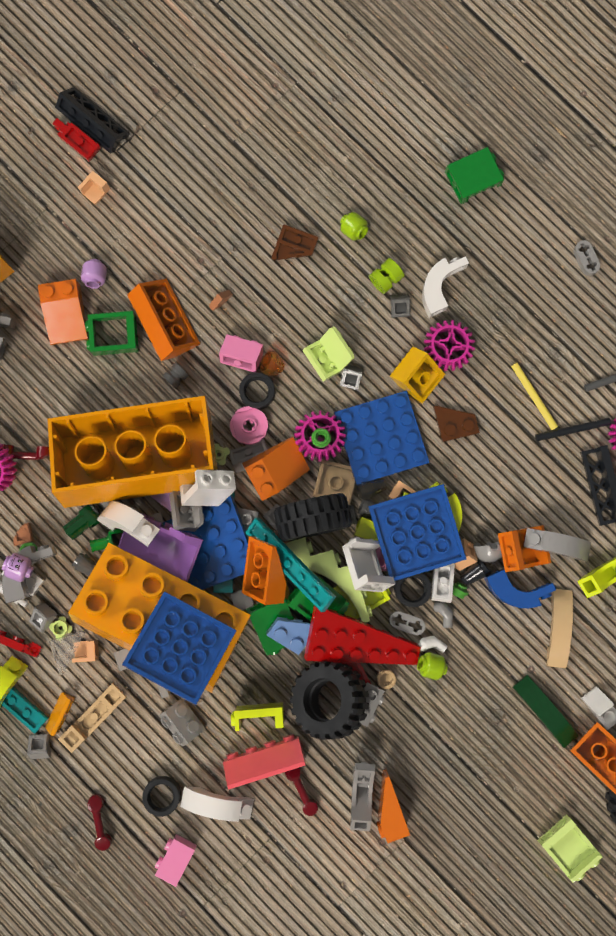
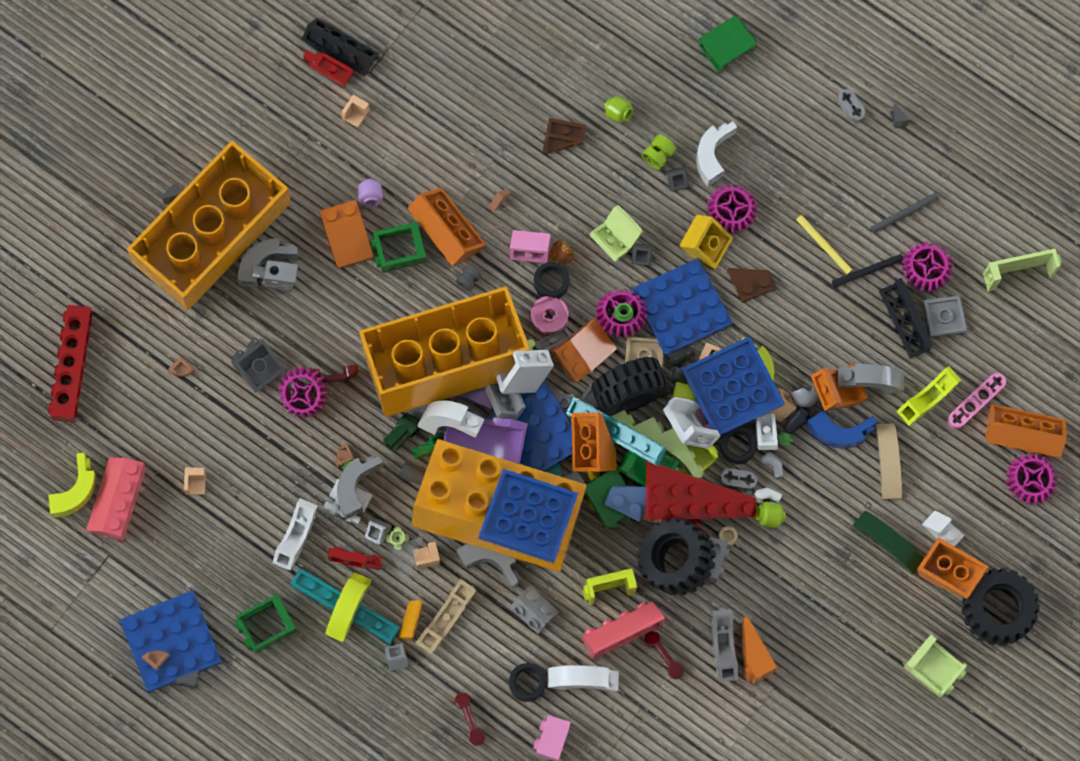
camera: 15 degrees left, 10 degrees down
(17, 567) = (353, 476): lavender head -> none

